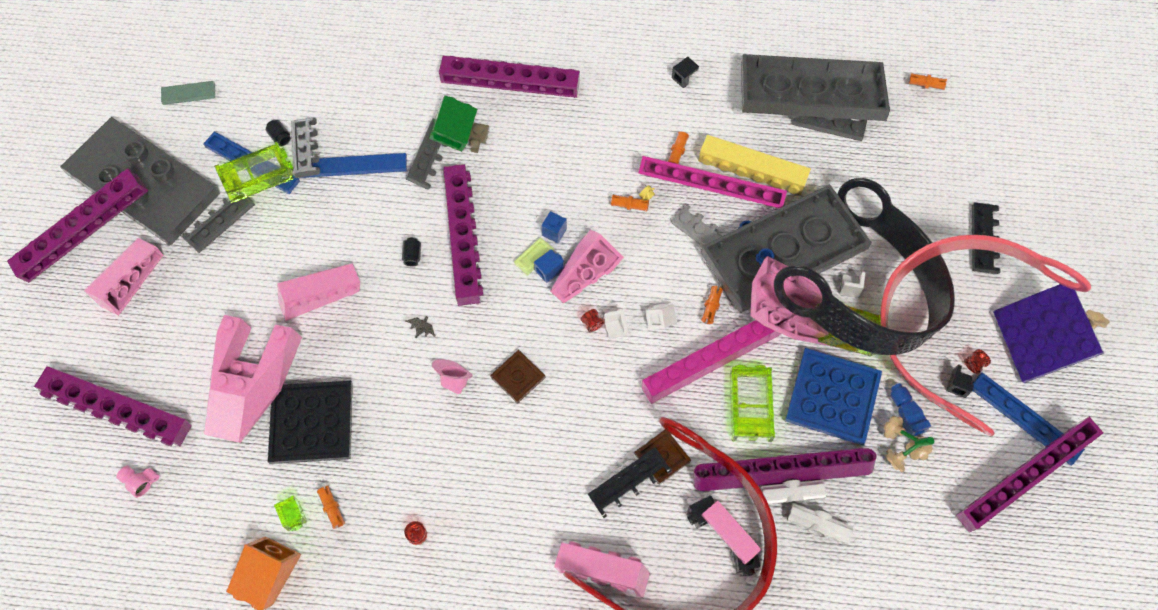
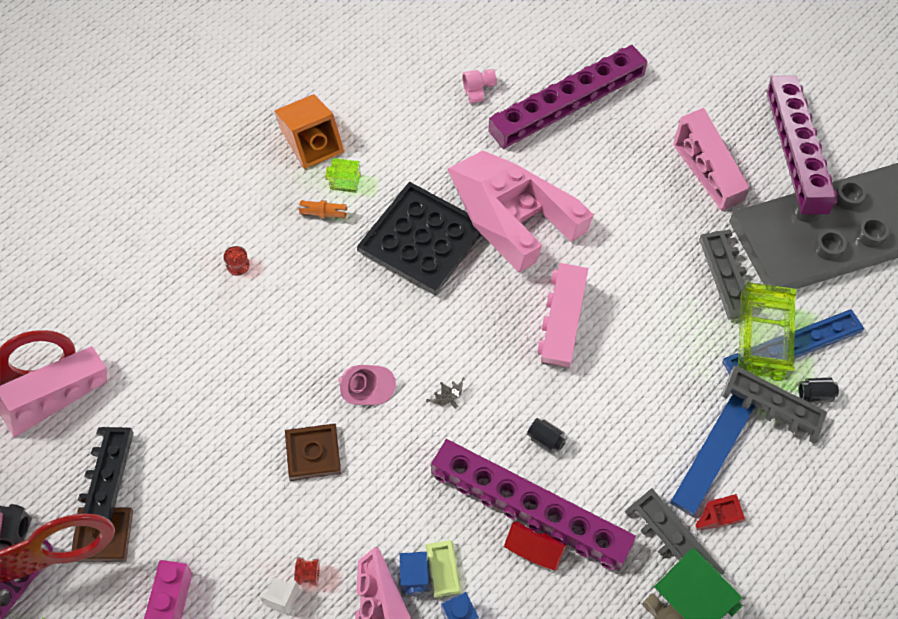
camera: 125 degrees right, 5 degrees down
(395, 143) = (721, 513): none -> red slope
(487, 216) = (534, 547): none -> red slope

